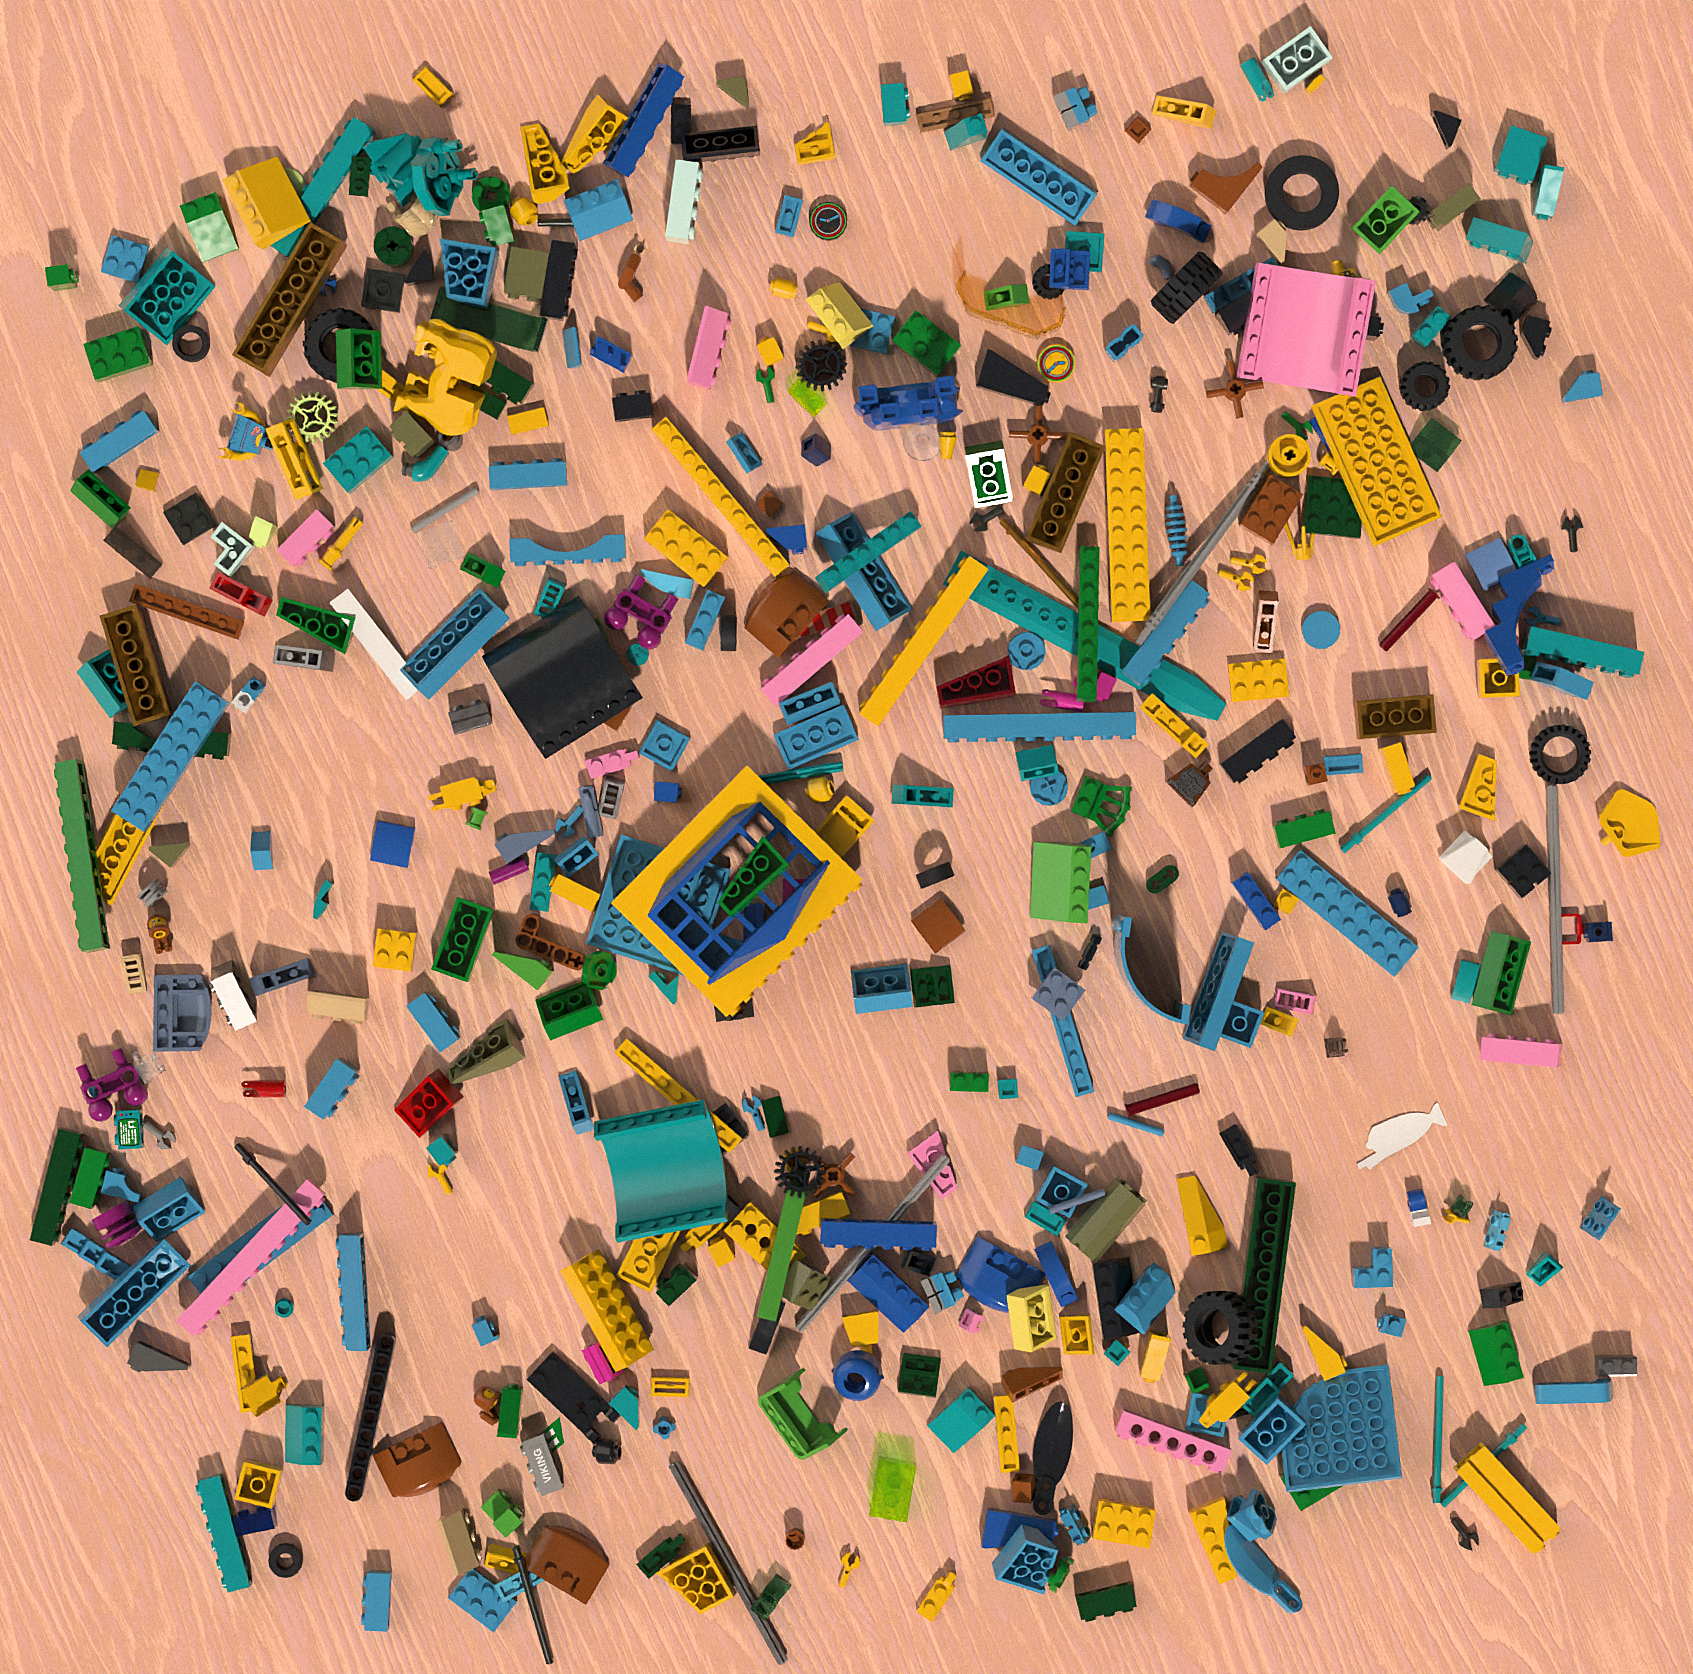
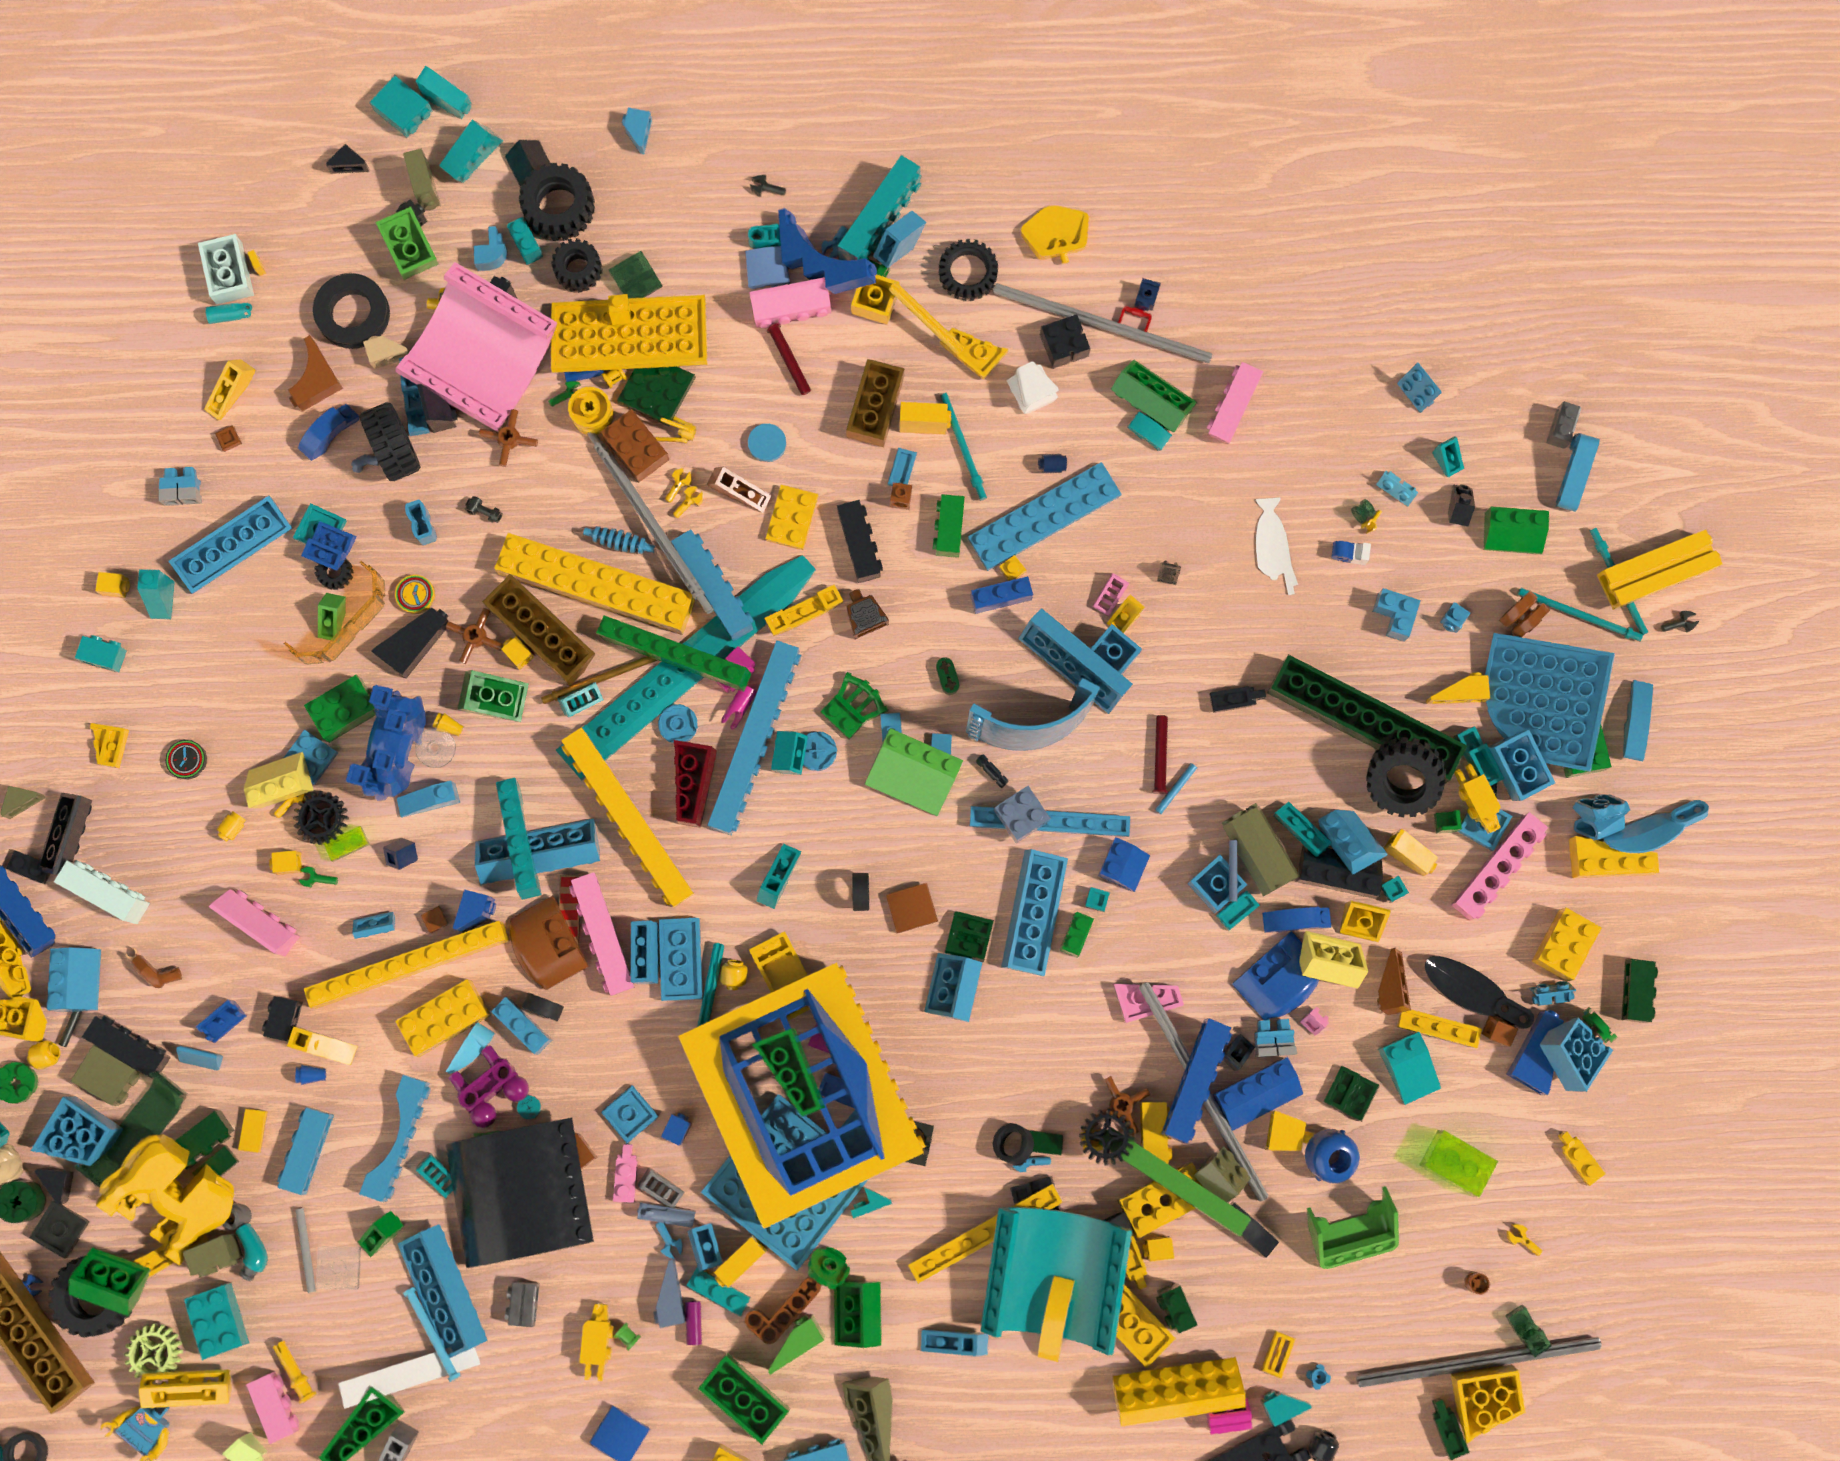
camera: 70 degrees left, 10 degrees down
(415, 650) = (453, 1374): none -> medium azure bar
(497, 223) = (42, 1086): piece -> none
(594, 451) = (309, 1074): none -> blue cone
(622, 452) = (322, 1045): none -> yellow slope
(629, 1182) = (1055, 1318): none -> yellow slope
(761, 1078) = (1000, 1137): none -> black tyre
(789, 216) = (164, 795): dark azure plate -> none
(873, 454) = (428, 799): none -> dark azure slope
(952, 115) = (136, 612): medium nougat tile -> none
(975, 1036) = (1034, 912): none -> dark azure arch
(987, 517) = (535, 715): pearl dark grey bar -> none
(1013, 544) = (577, 693): none -> teal slope
(1029, 1157) = (1172, 902): dark azure panel -> none
(1048, 1101) = (1124, 864): none -> blue slope
(1140, 1251) = (1302, 829): none -> teal plate
(1202, 1224) = (1296, 761): yellow wedge -> none
(1355, 1523) = (1638, 721): none -> dark azure slope
(1394, 445) = (619, 309): none -> yellow brick
(1413, 1389) = (1524, 615): none -> dark orange wheel
(1493, 734) = (926, 318): none -> yellow axle
(1534, 334) = (570, 152): black slope -> none

